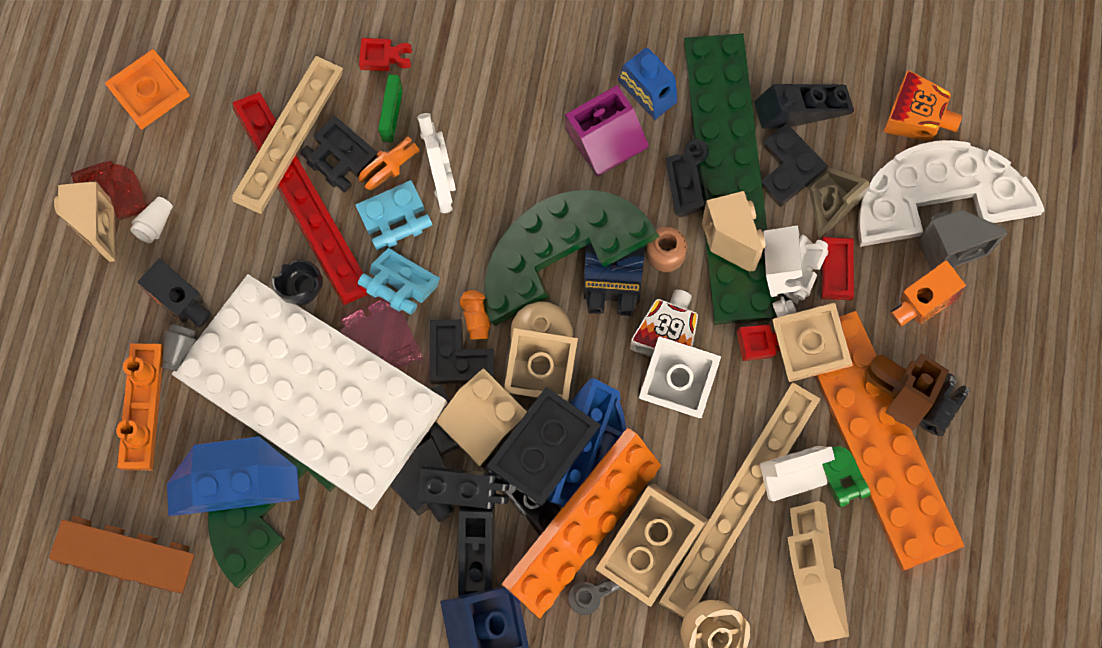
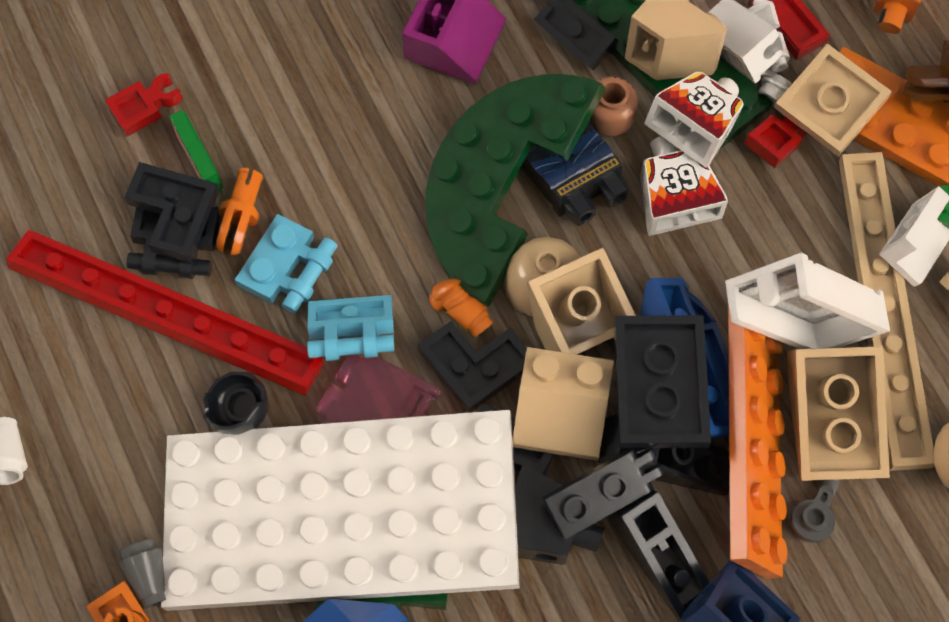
camera: 40 degrees left, 5 degrees down
(167, 287) = (82, 508): black torso -> none
(287, 135) = (102, 253): tan plate -> none
(354, 138) = (183, 207): none -> black plate
(439, 162) = (302, 170): white plate -> none
(672, 463) = (806, 305): none -> white door
(679, 377) = (732, 222): white slope -> none
(711, 292) = (696, 115): none -> white torso

